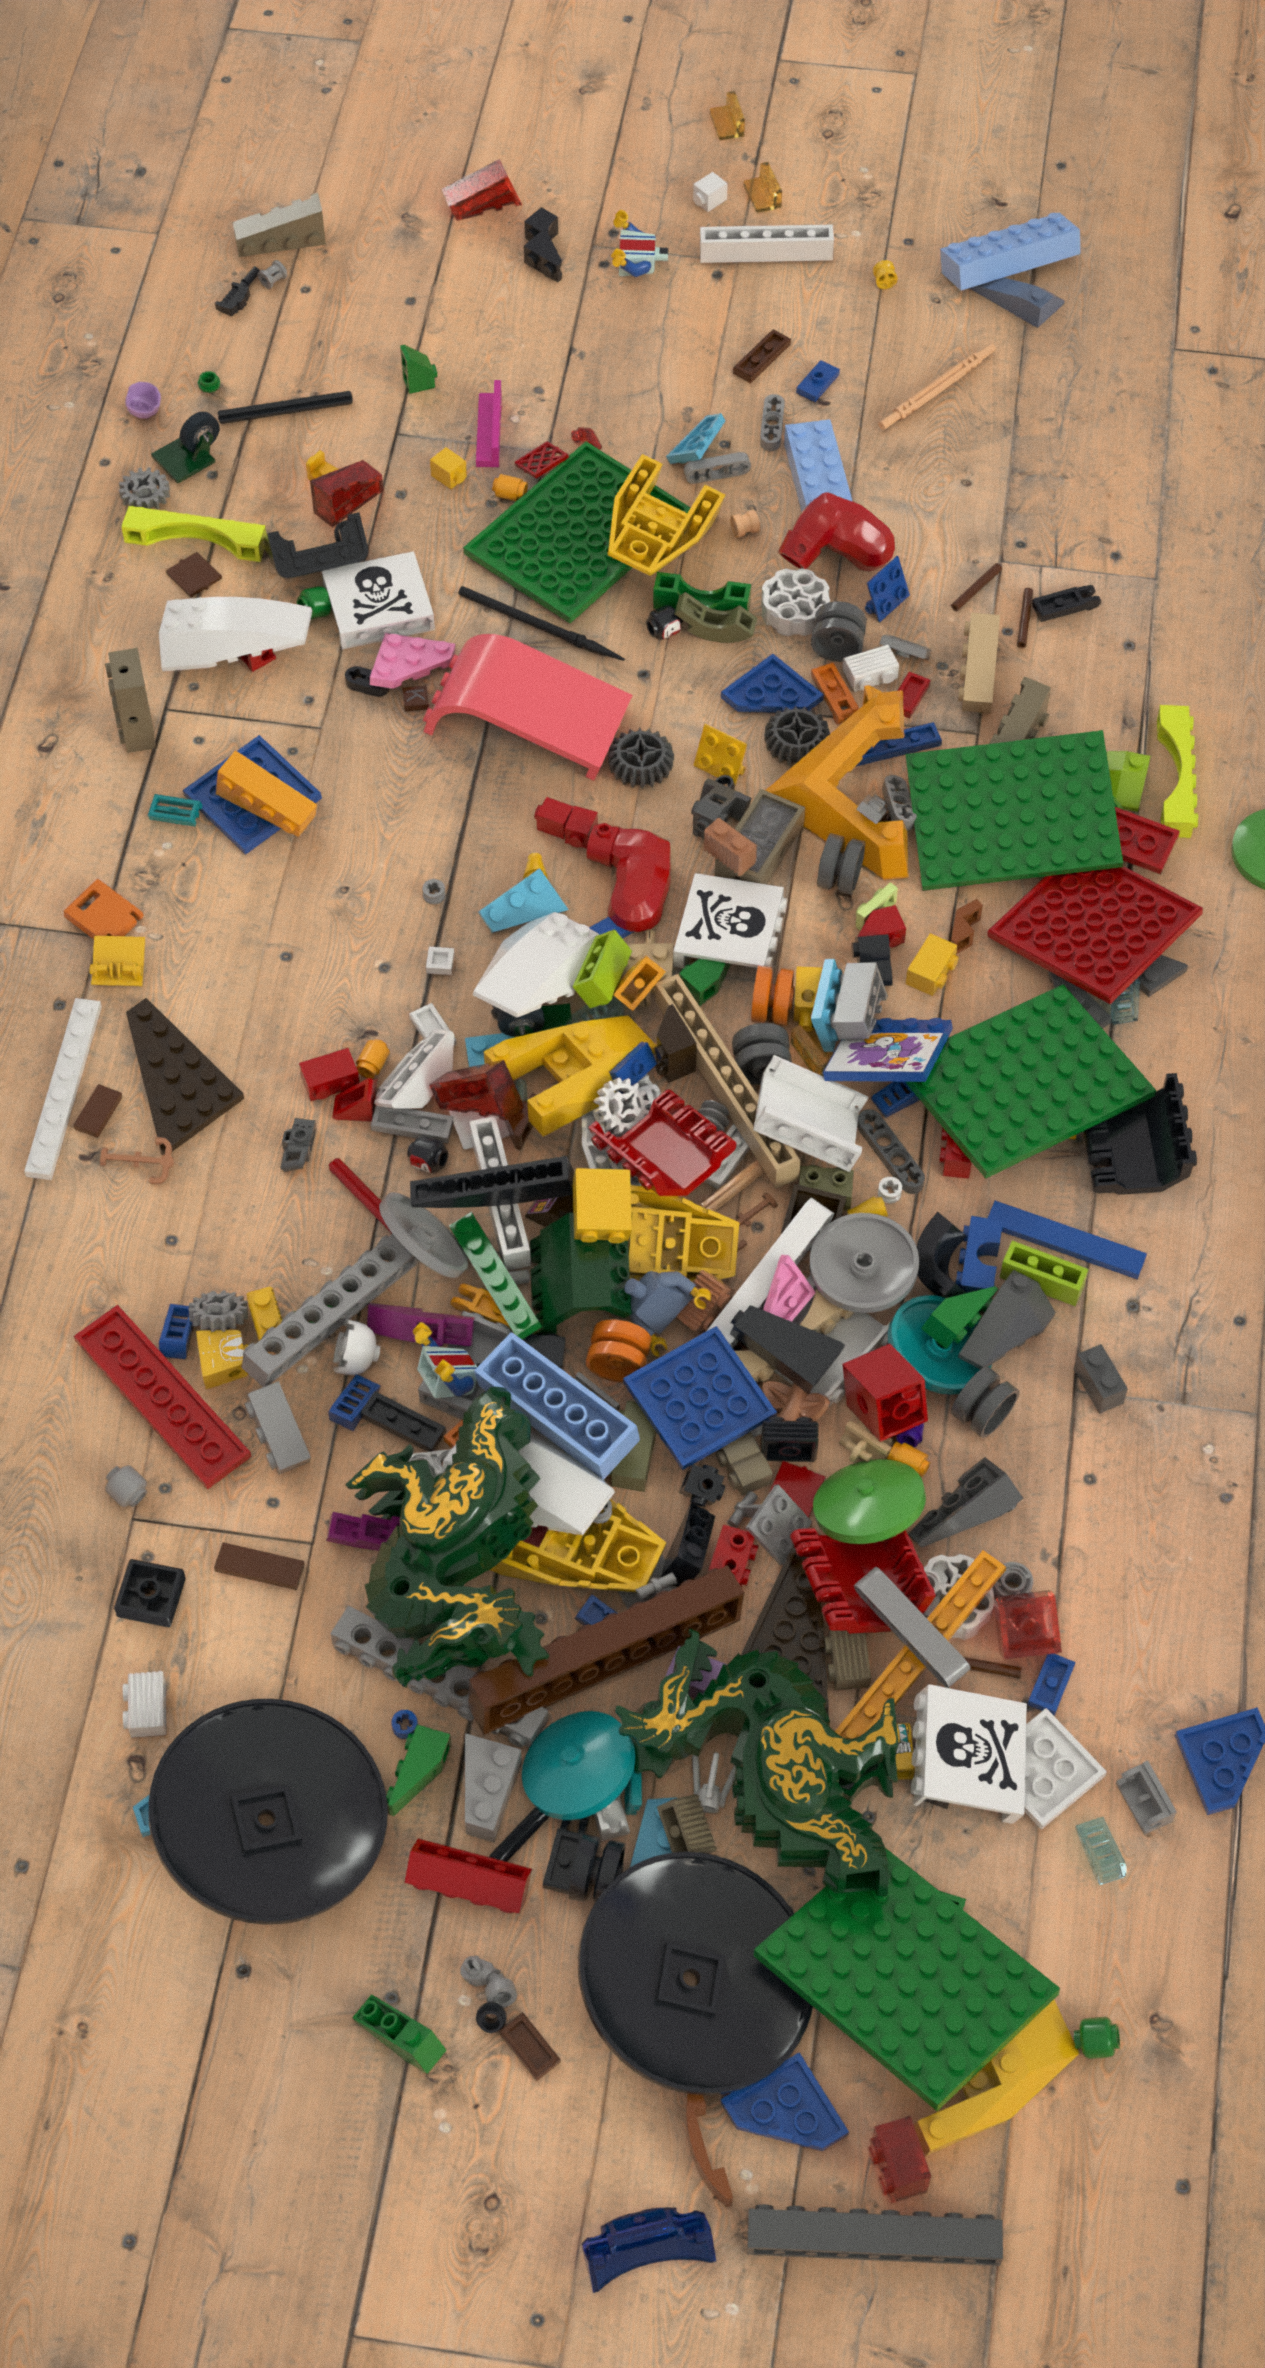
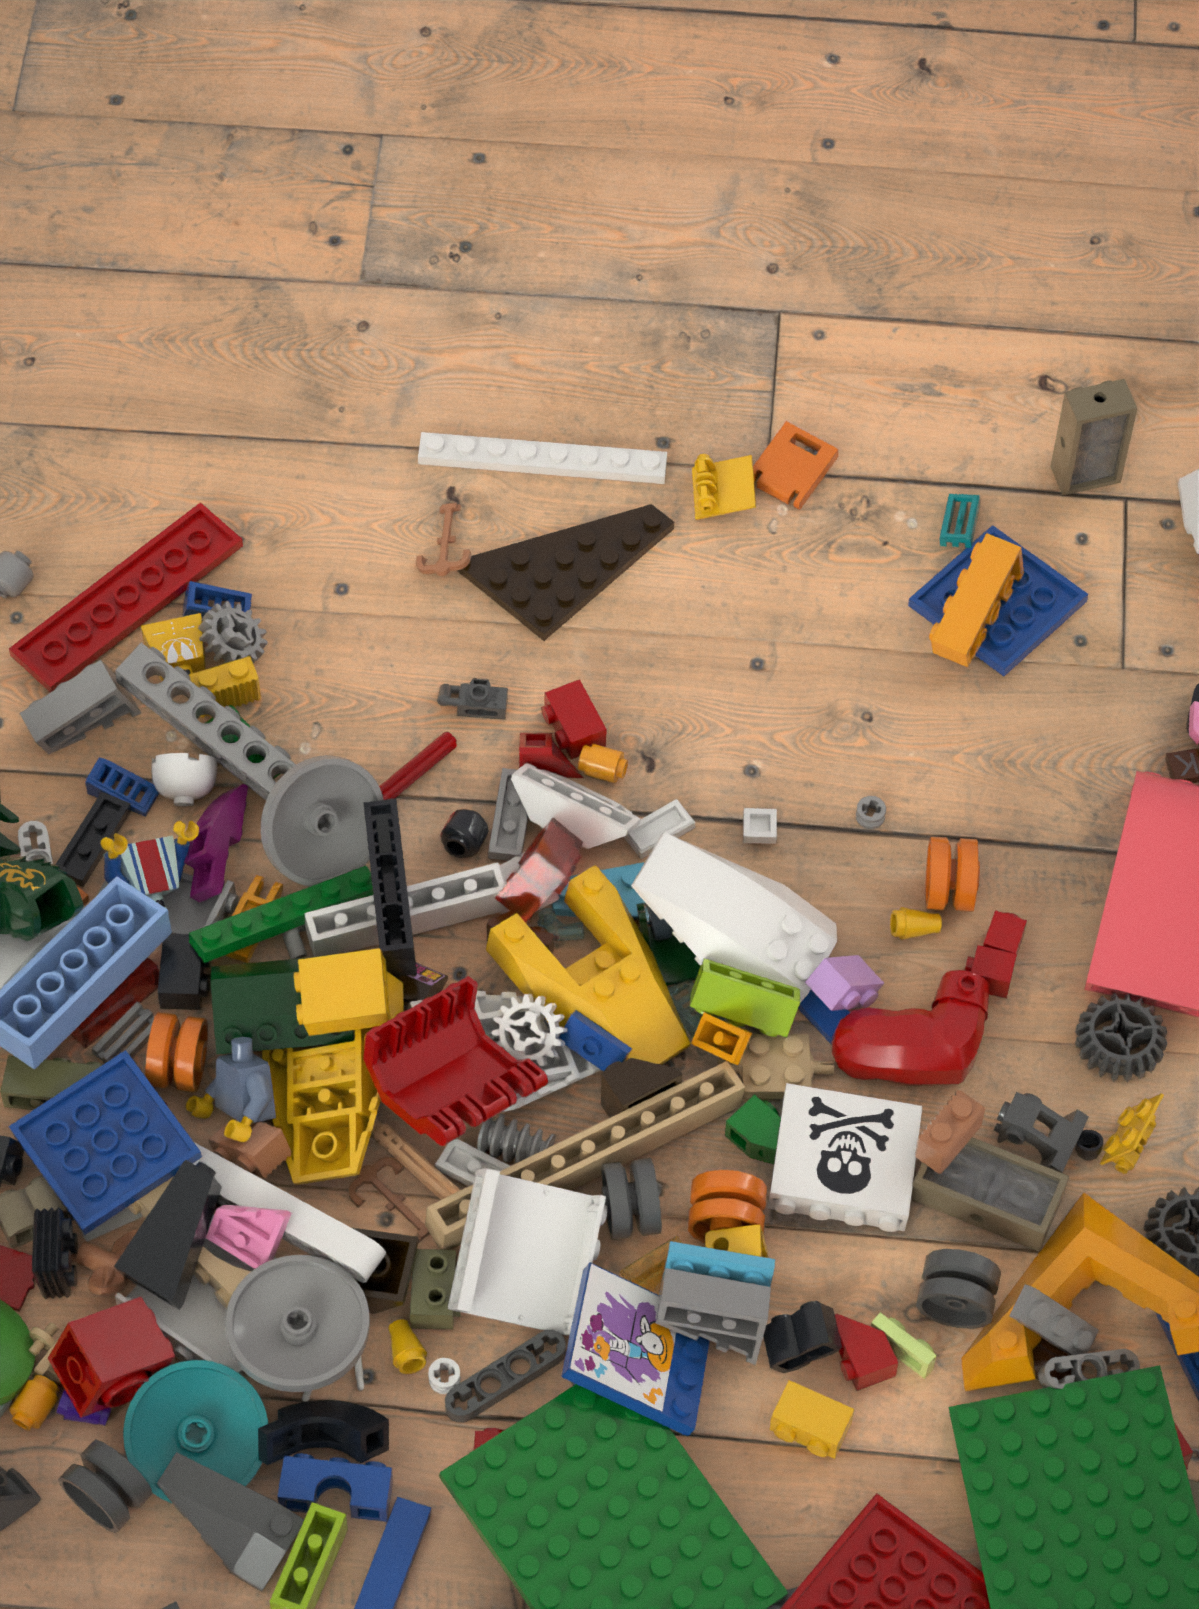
camera: 85 degrees right, 0 degrees up
(98, 1111) = (512, 494): reddish brown tile -> none
(504, 837) = (954, 874): none -> orange wheel
(523, 903) = (856, 910): medium azure wing -> none
(591, 909) = (845, 983): none -> lavender brick
(956, 1313) = (226, 1441): green slope -> none
(965, 917) = (869, 1456): dark orange slope -> none

